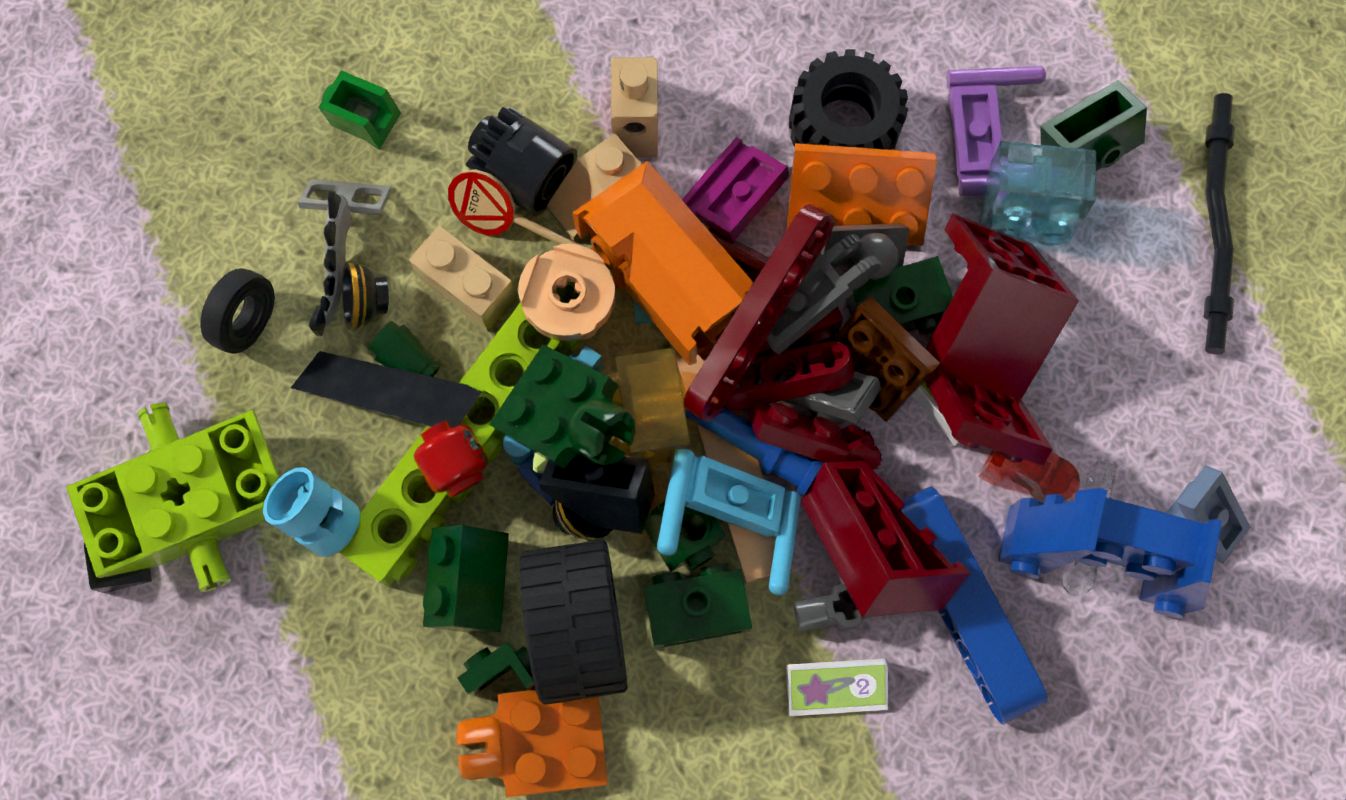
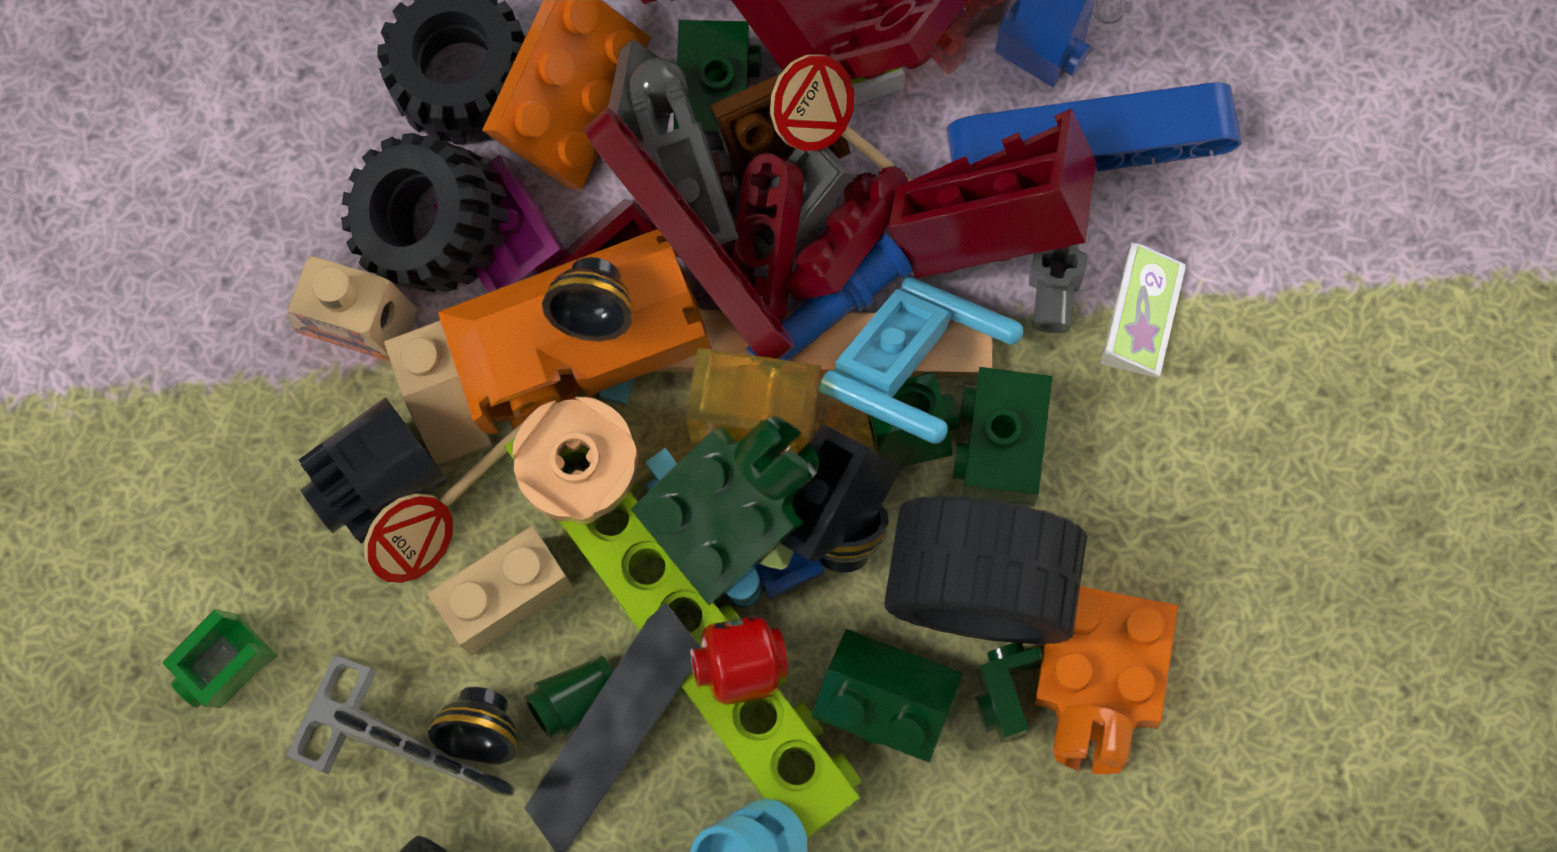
camera: 65 degrees left, 0 degrees up
(676, 252) = (589, 301): none -> black piece
(695, 133) = (384, 206): none -> black tyre
(899, 373) = (815, 106): none -> piece

